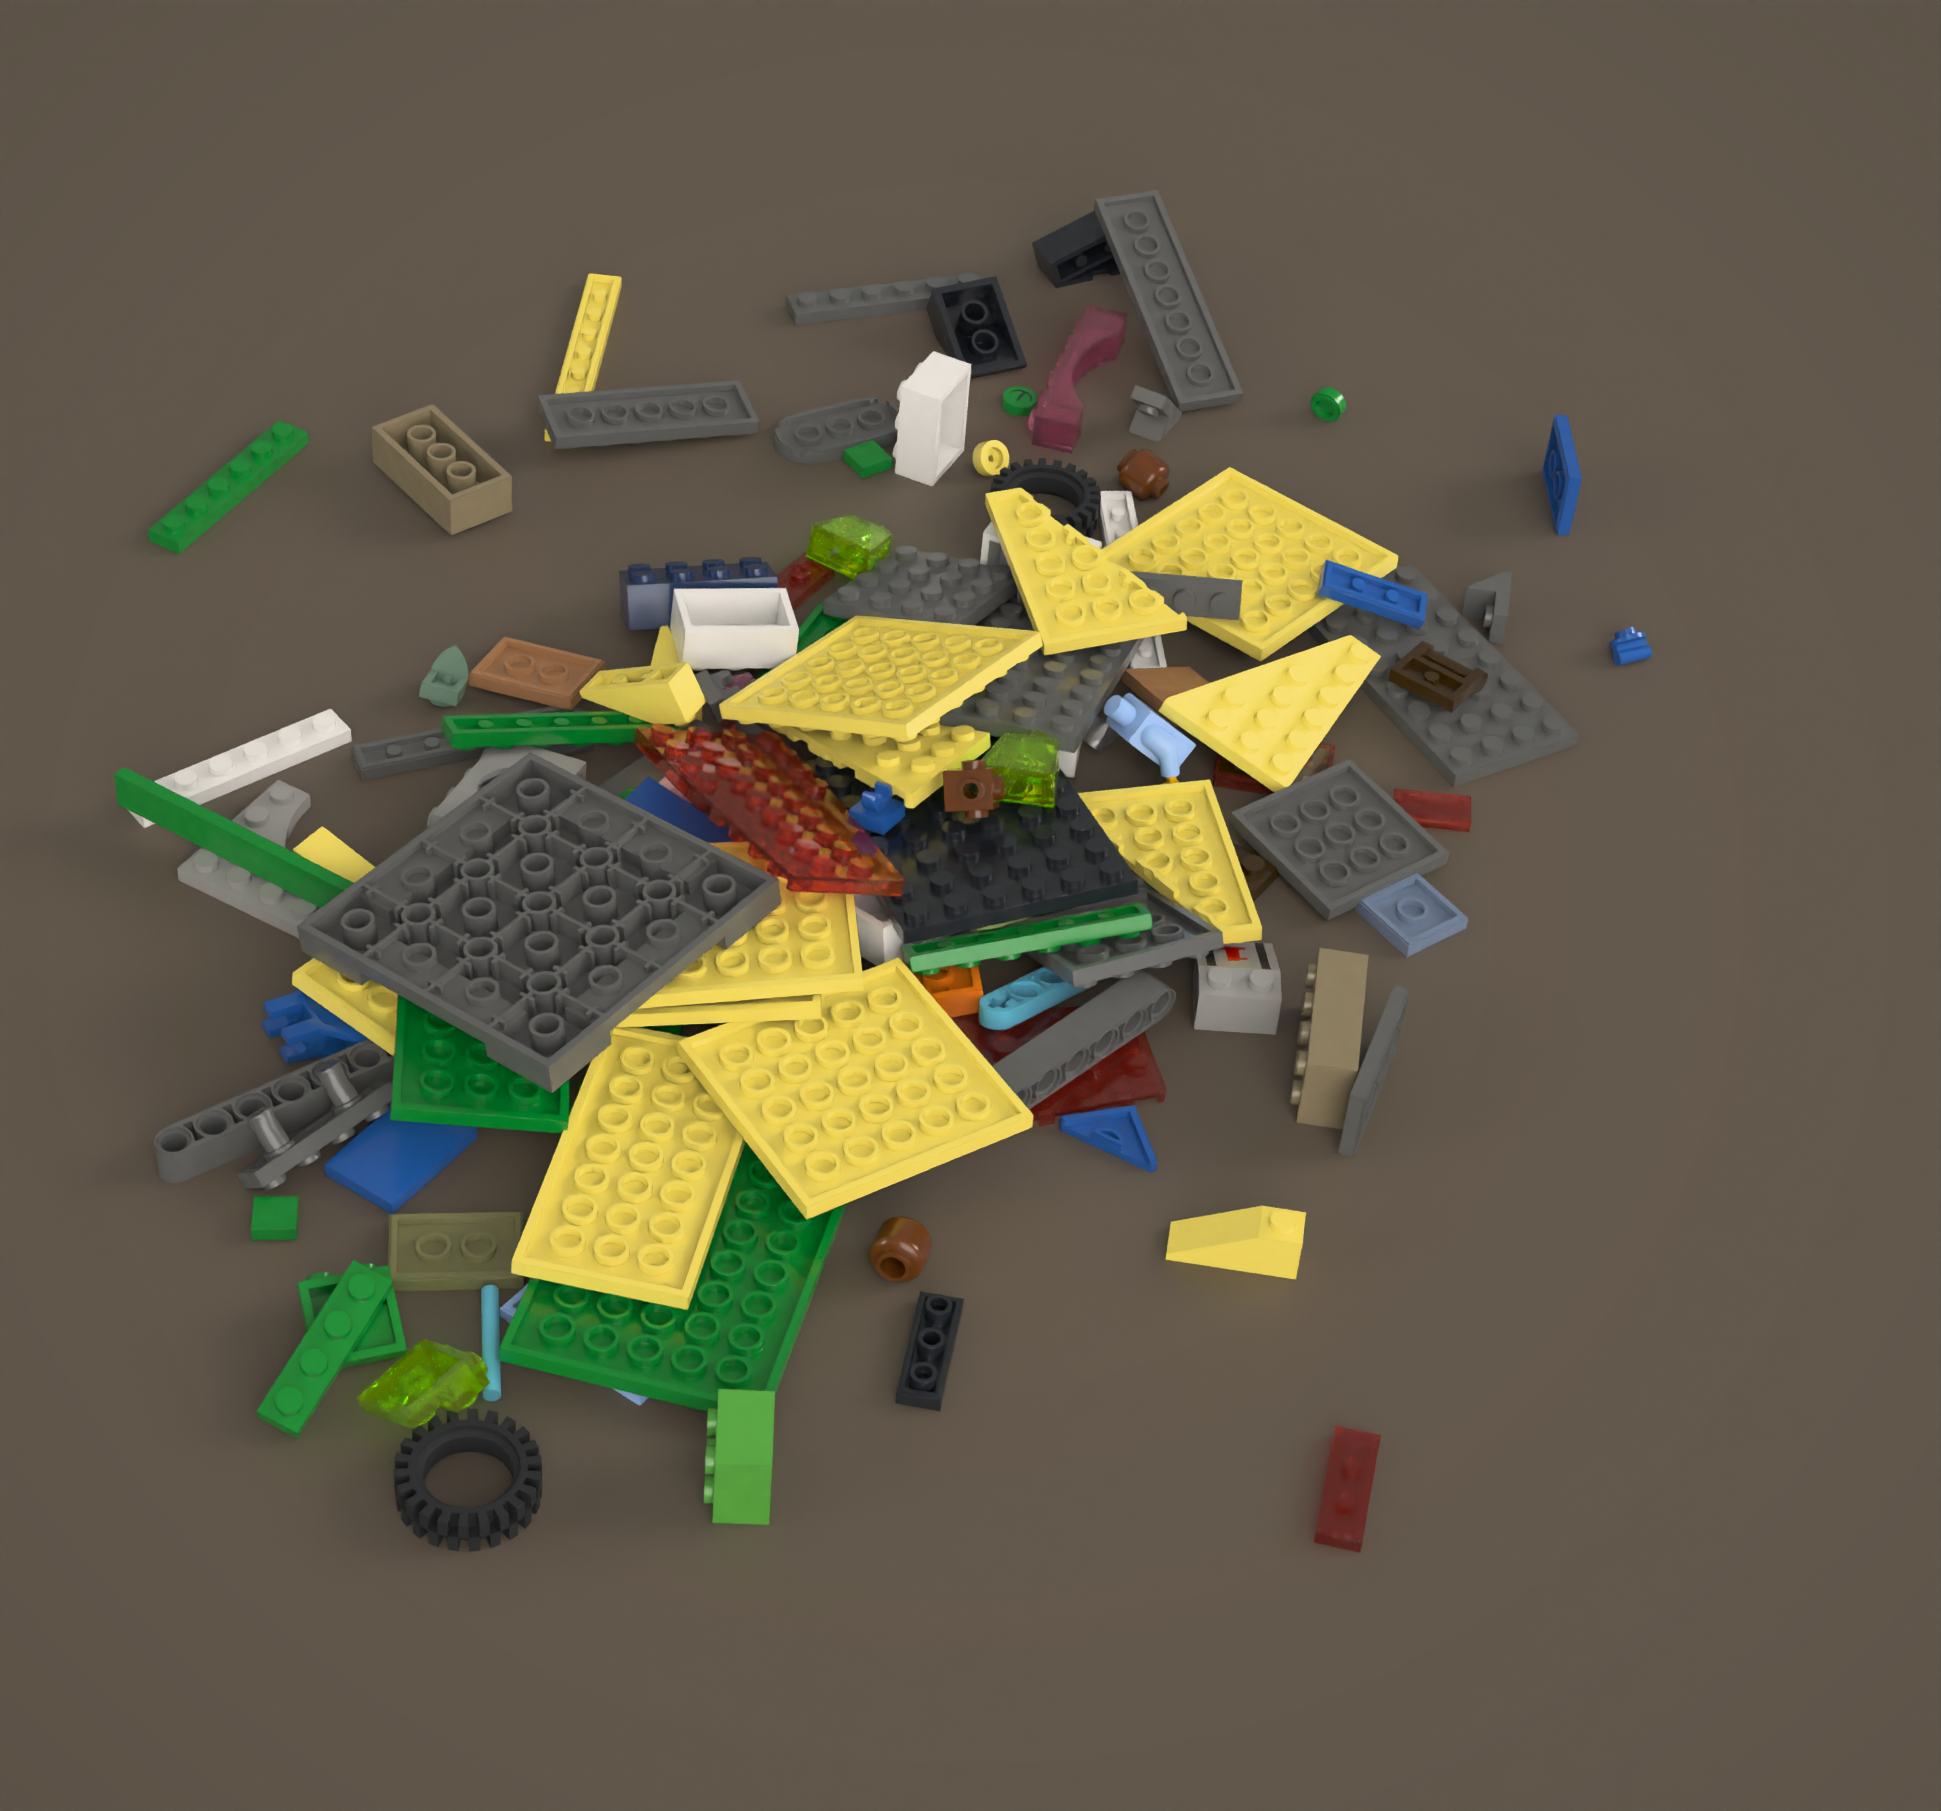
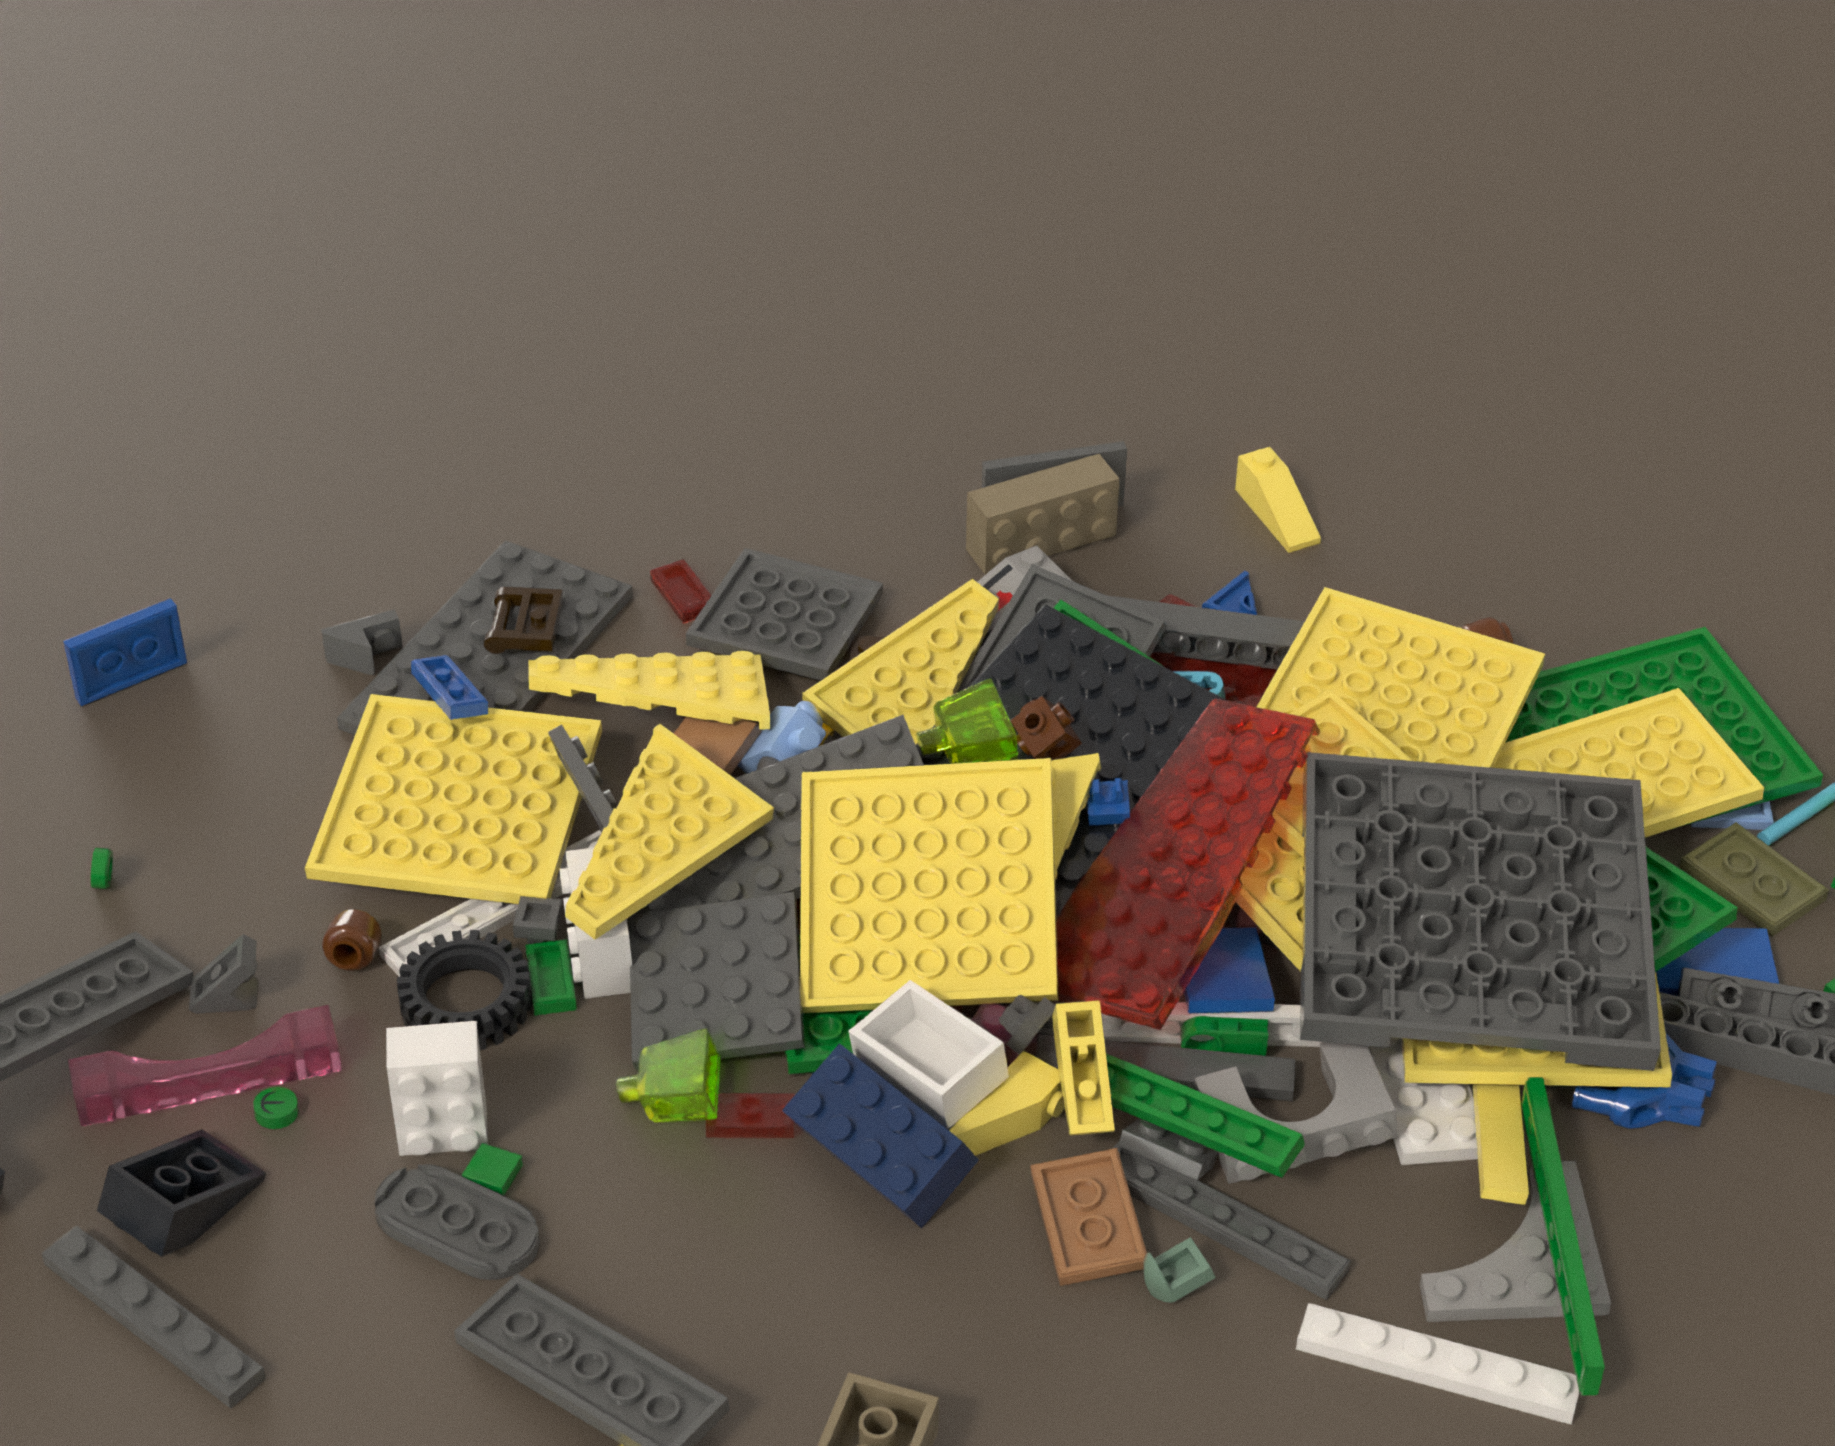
camera: 120 degrees left, 0 degrees up
(740, 1456) = (1755, 612): bright green brick -> none
(929, 1351) = (1541, 604): black tile -> none
(1347, 1489) = (1418, 390): clear red tile -> none
(1412, 915) = (831, 548): sand blue tile -> none
(1630, 646) = (343, 555): blue plate -> none

